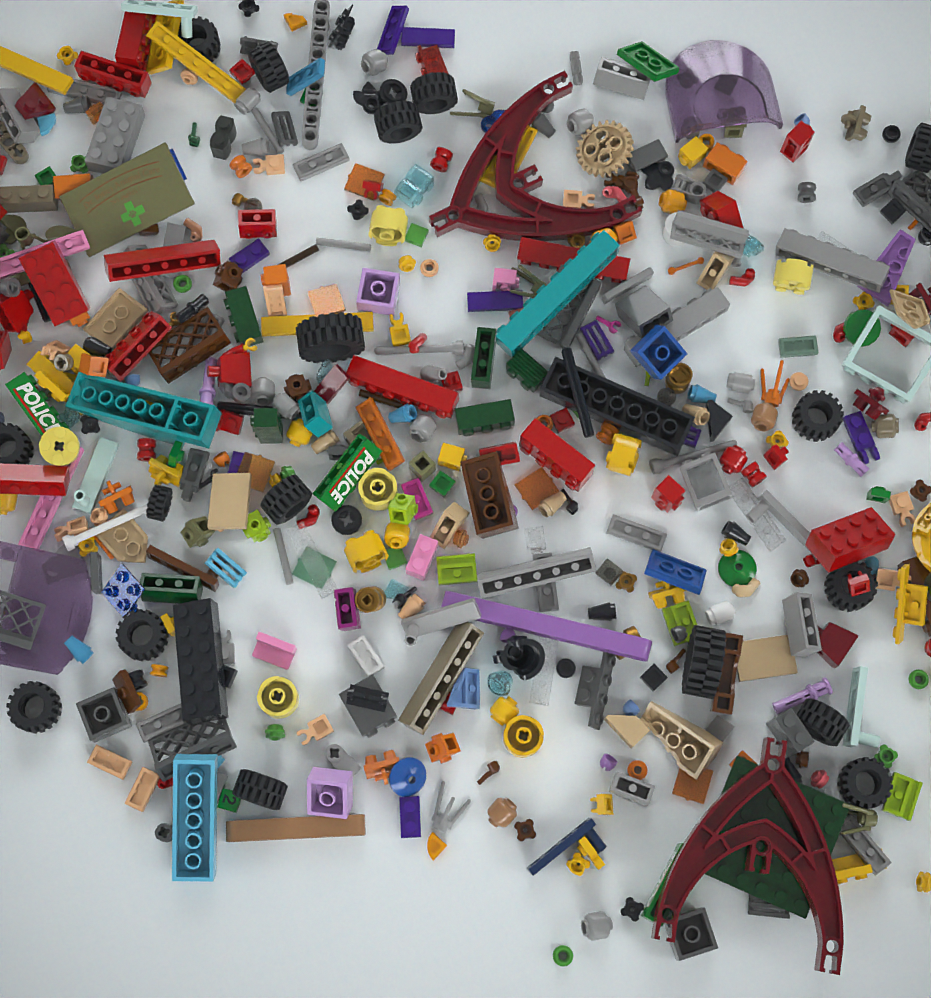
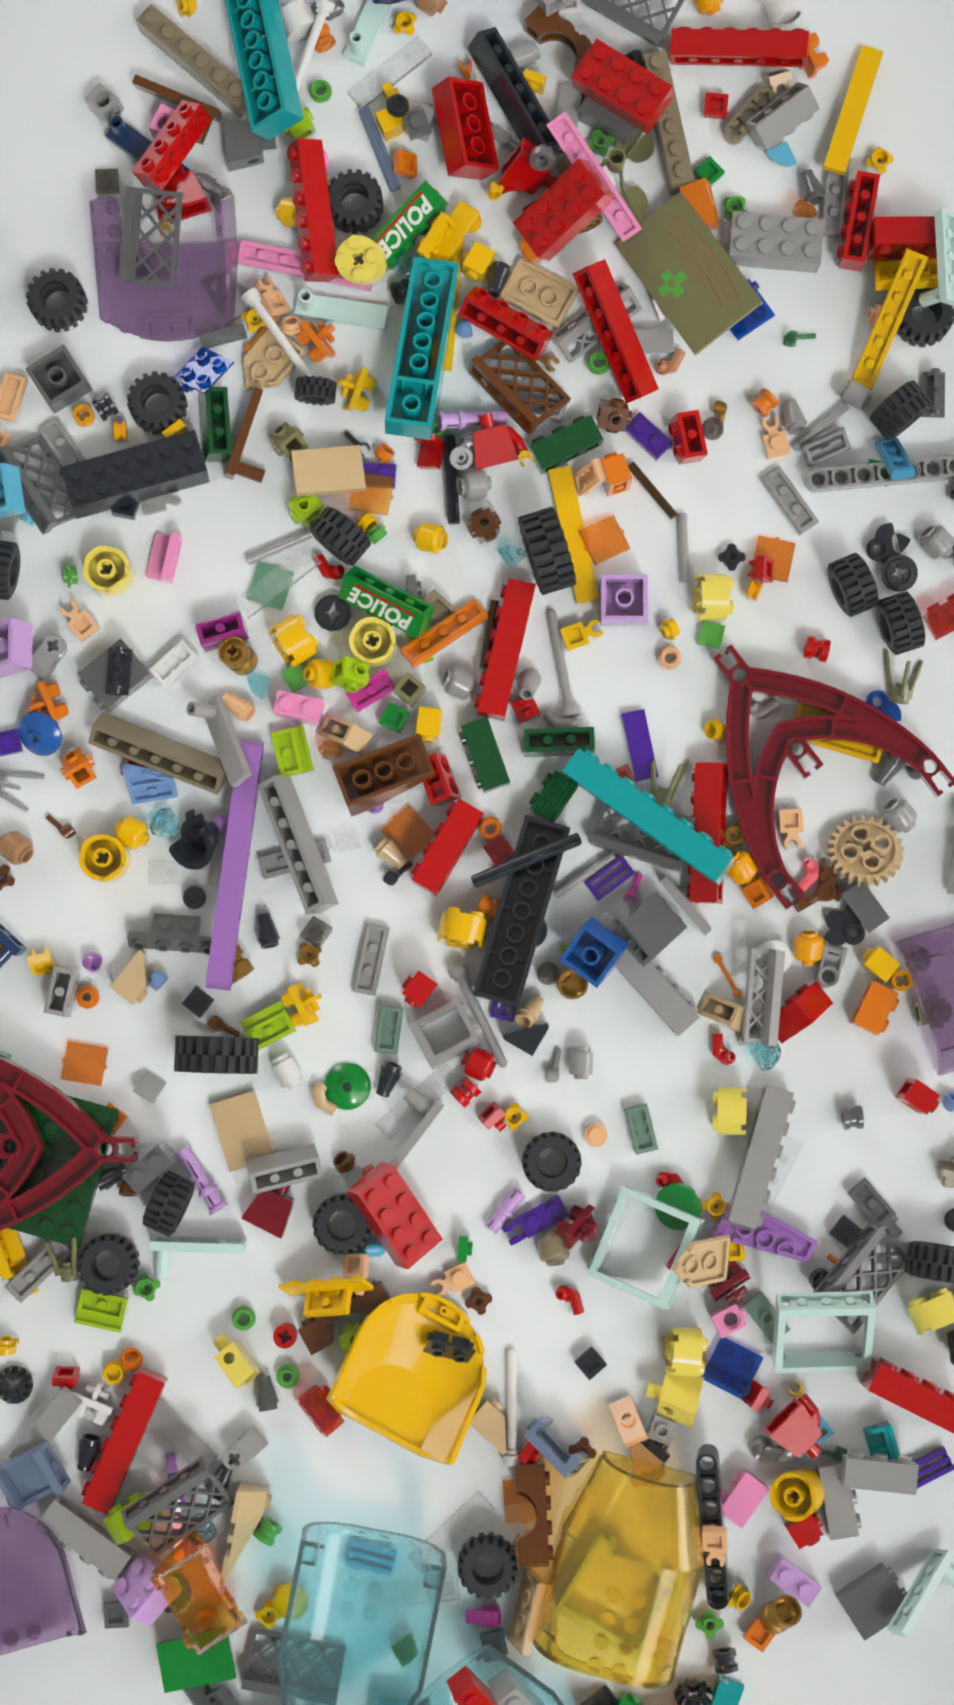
camera: 85 degrees right, 10 degrees up
(34, 103) = (803, 134): dark red wing -> none
(54, 348) = (486, 229): light nougat plate -> none
(58, 362) = (473, 244): dark tan bush -> none
(78, 649) = (130, 335): dark azure cone -> none
(93, 365) = (466, 278): orange panel -> none
(126, 691) = (88, 398): reddish brown plate -> none
(146, 449) = (380, 363): red wheel -> none
(176, 454) = (375, 397): green plate -> none
(192, 308) = (566, 380): black axle -> none
(193, 473) = (359, 423): dark grey hinge -> none
(223, 137) = (804, 374): pearl dark grey brick -> none
(230, 562) = (242, 499): medium azure tile -> none
(242, 72) = (892, 378): red tile -> none
(267, 425) = (425, 496): dark green brick -> none
(286, 406) = (457, 515): light grey brick -> none
(315, 414) = (452, 551): teal brick -> none
(324, 441) = (424, 570): tan cone -> none
(332, 383) = (495, 564): tile -> none
(403, 597) = (249, 694): black hand -> none
(406, 413) = (471, 657): dark azure cone -> none
(414, 185) = (774, 620): clear light blue brick -> none
(416, 342) = (566, 658): red arm -> none
(505, 279) = (667, 753): bright pink brick -> none
(675, 571) = (326, 1010): blue tile -> none
(679, 633) = (251, 1024): dark grey hinge -> none
(686, 742) = (127, 1051): tan wedge -> none
(696, 527) = (388, 1029): none -> sand green plate
(700, 395) = (557, 1015): dark azure cone -> none
(714, 181) = (848, 998): dark grey plate -> none
(725, 694) = (211, 1085): reddish brown arch -> none
(728, 547) = (369, 1066): yellow plate -> none
(764, 417) = (540, 1096): medium nougat head -> none
(773, 395) = (569, 1104): orange plant -> none
(819, 778) = (107, 1210): coral plate -> none
(859, 584) = (337, 1229): red tile -> none

